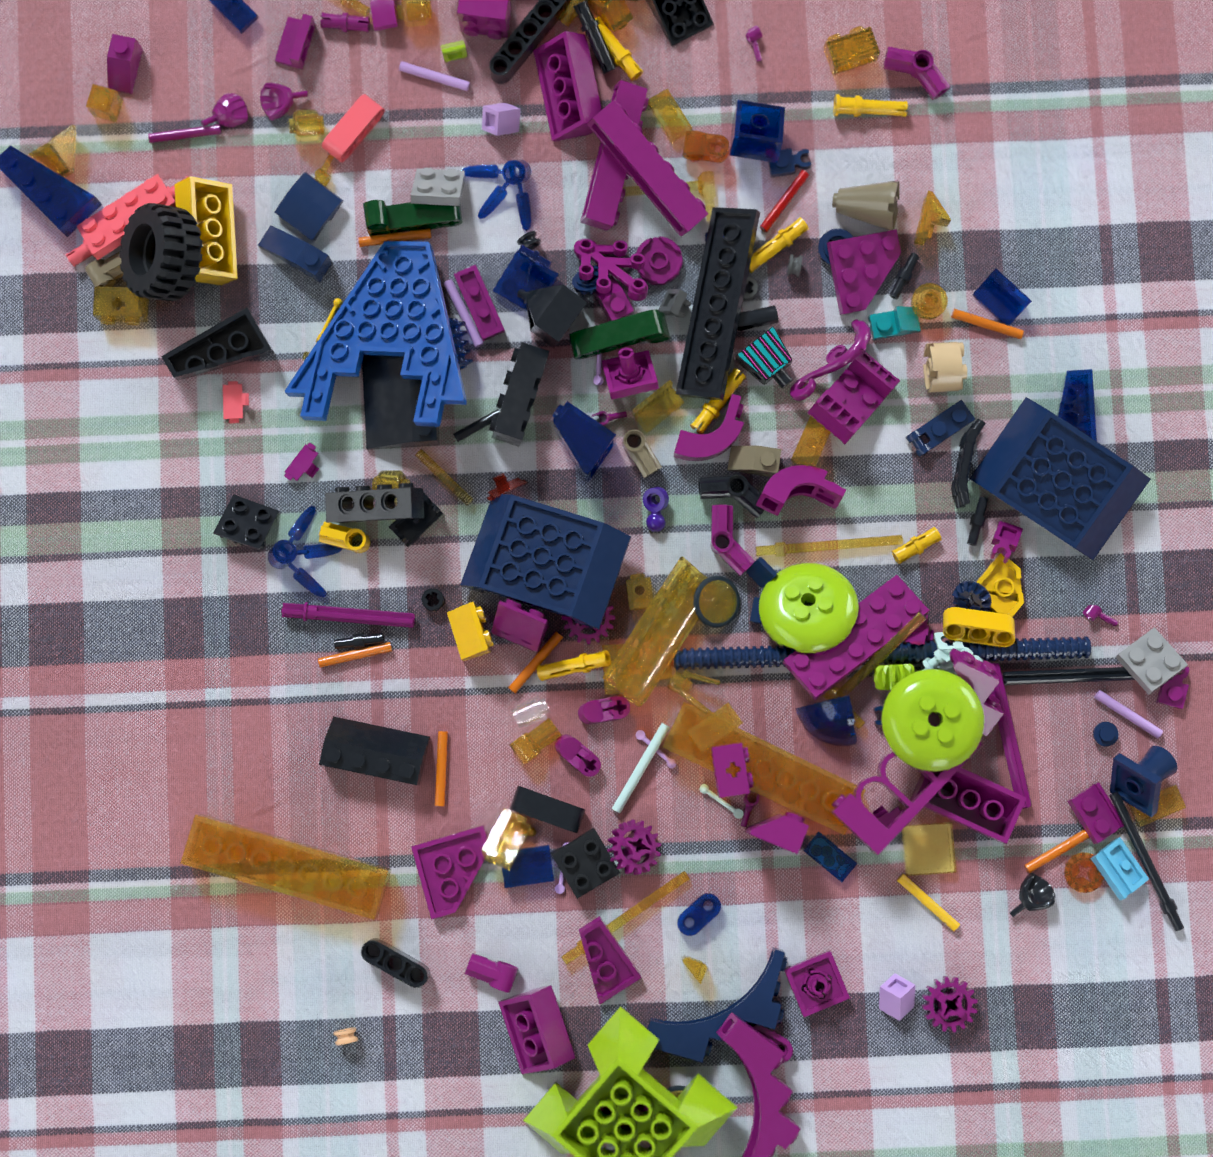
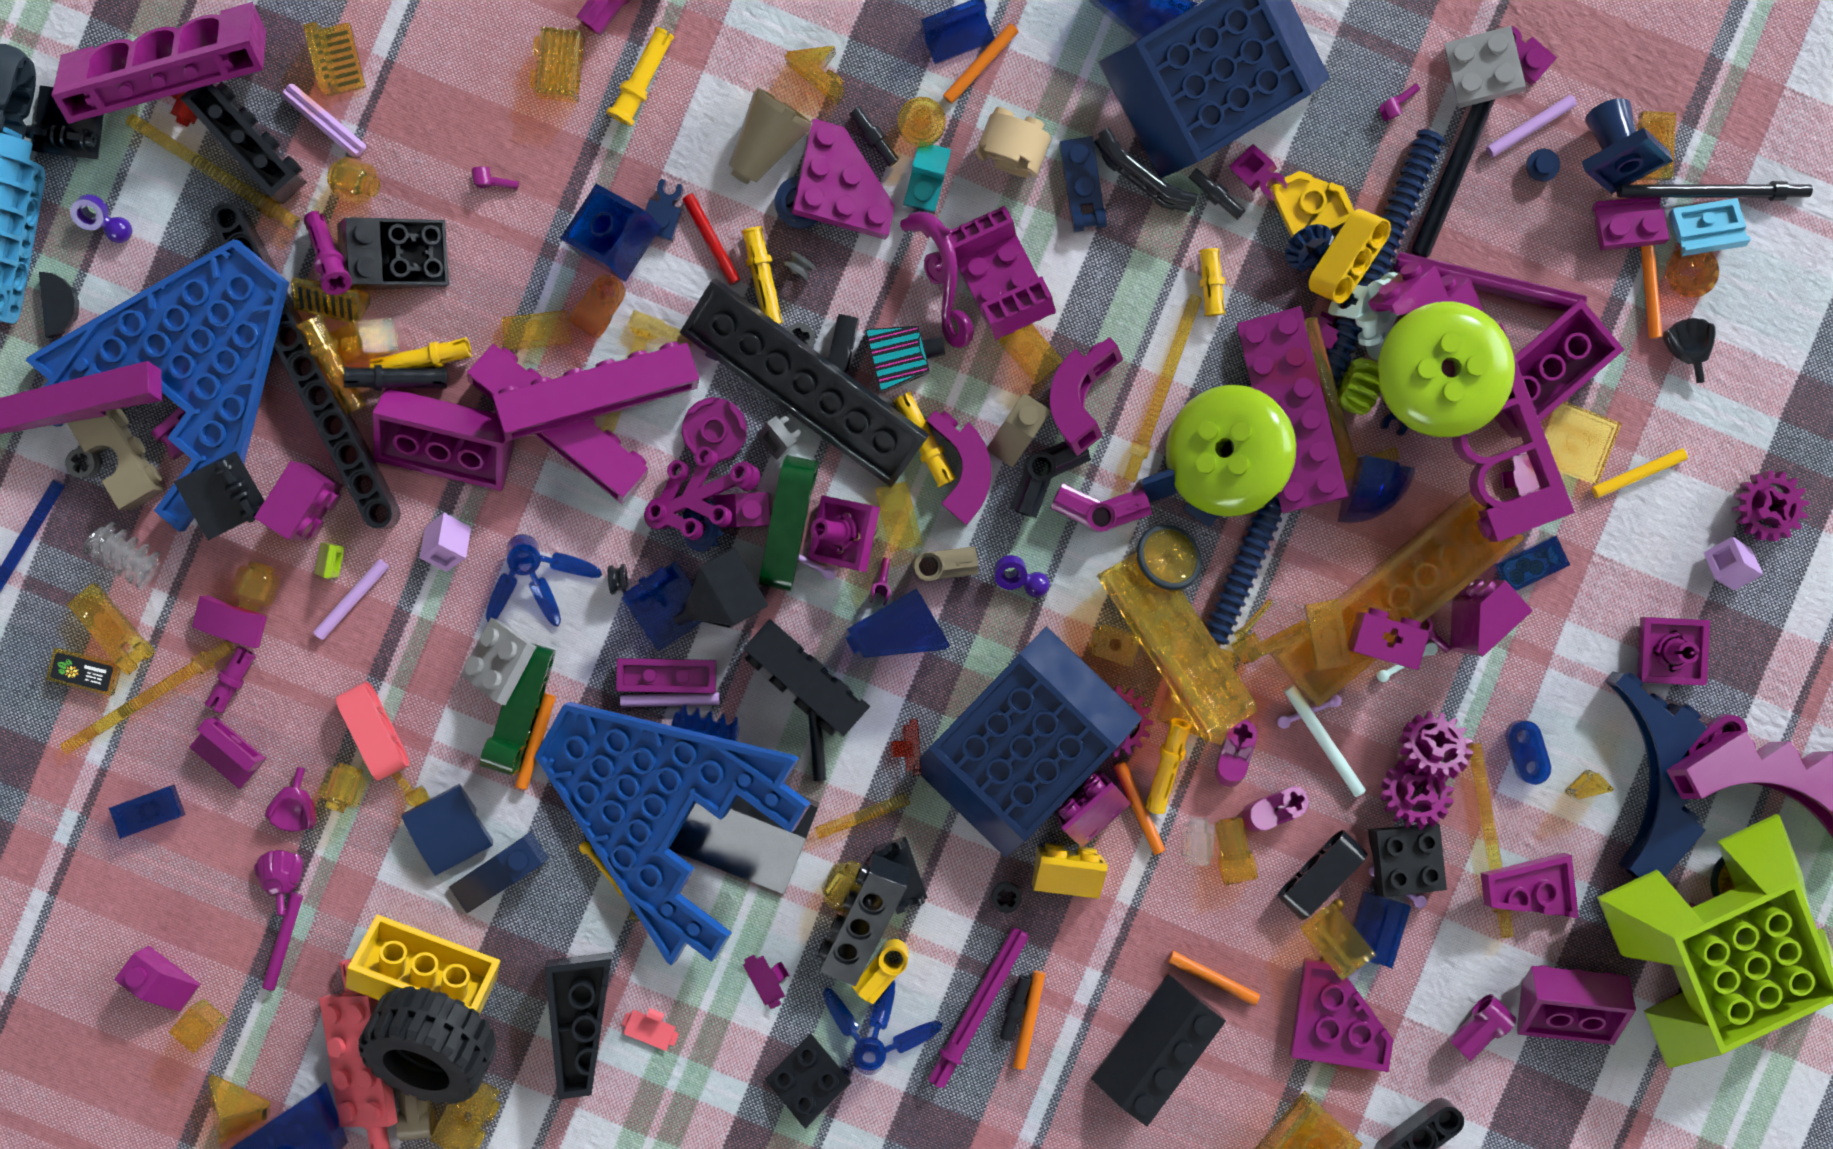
camera: 65 degrees left, 5 degrees up
(672, 844) = (1435, 746): none -> magenta gear

